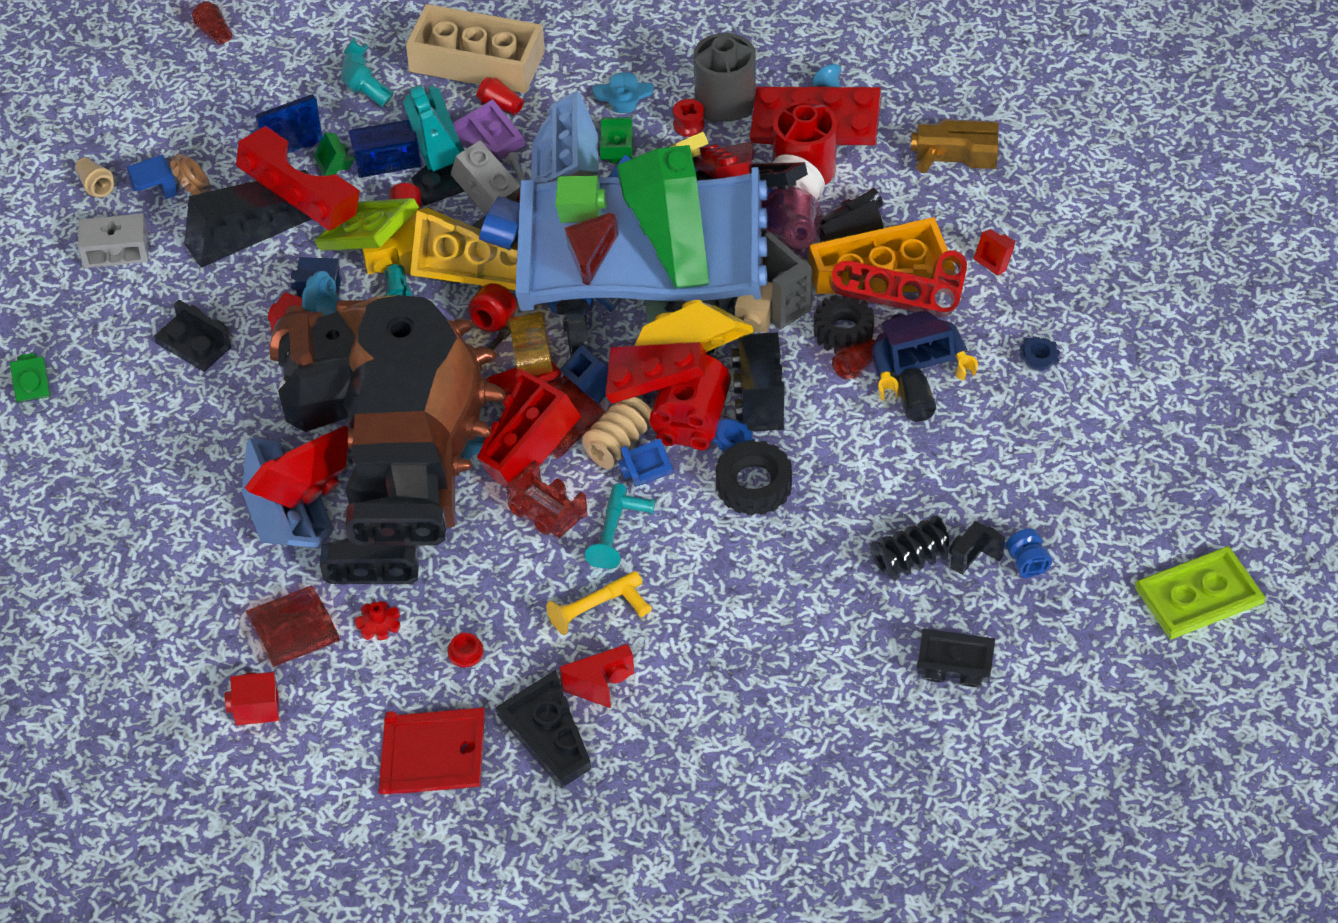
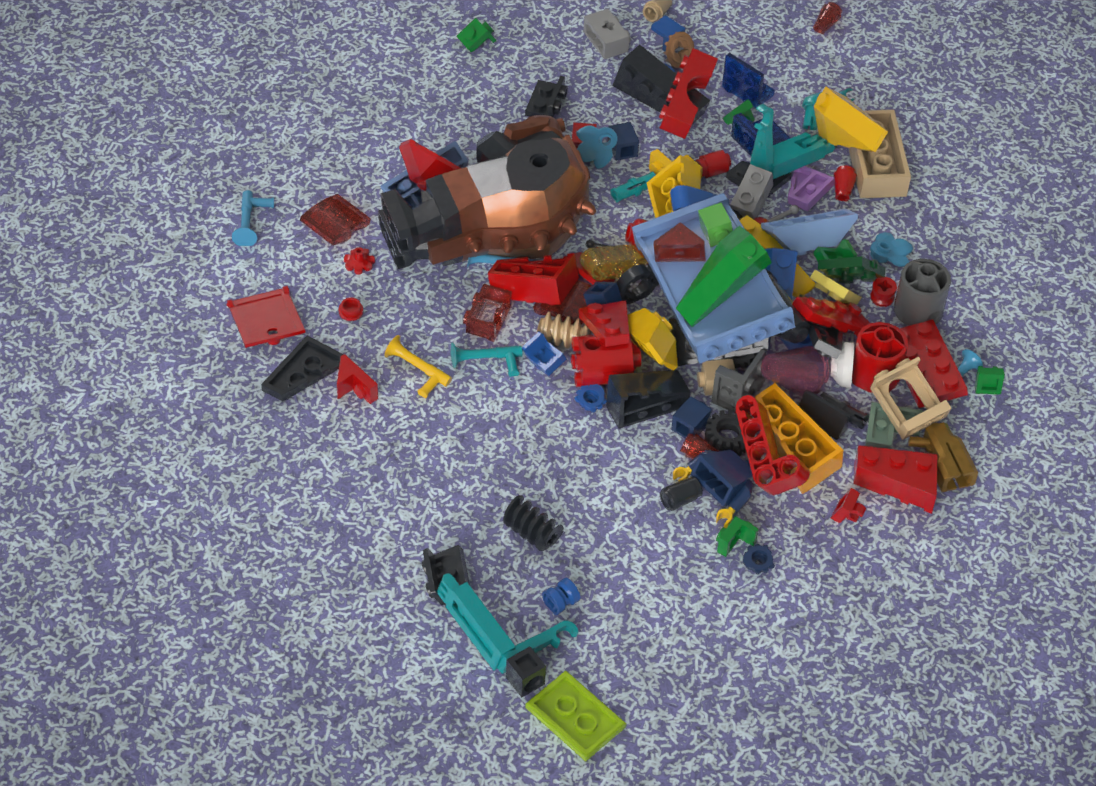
camera: 65 degrees right, 0 degrees up
(253, 698) = (270, 217): red brick -> none
(271, 736) = (244, 235): none -> dark azure piece
(370, 227) = (674, 146): lime tile -> none
(435, 49) = (845, 123): none -> yellow wedge
(669, 114) = (852, 269): none -> dark green plate
(754, 455) = (560, 436): black tyre -> none
(809, 349) = (691, 418): none -> dark blue brick
(860, 70) = (989, 380): none -> green tile
(885, 175) = (880, 428): none -> sand green plate
(906, 125) = (910, 372): none -> tan panel
(973, 188) = (899, 474): none -> red wedge
(973, 542) = (552, 559): black bracket -> none
(998, 364) = (736, 530): none -> green bracket
(1059, 637) = (486, 631): none -> teal hinge
(1137, 614) = (525, 671): none -> black brick

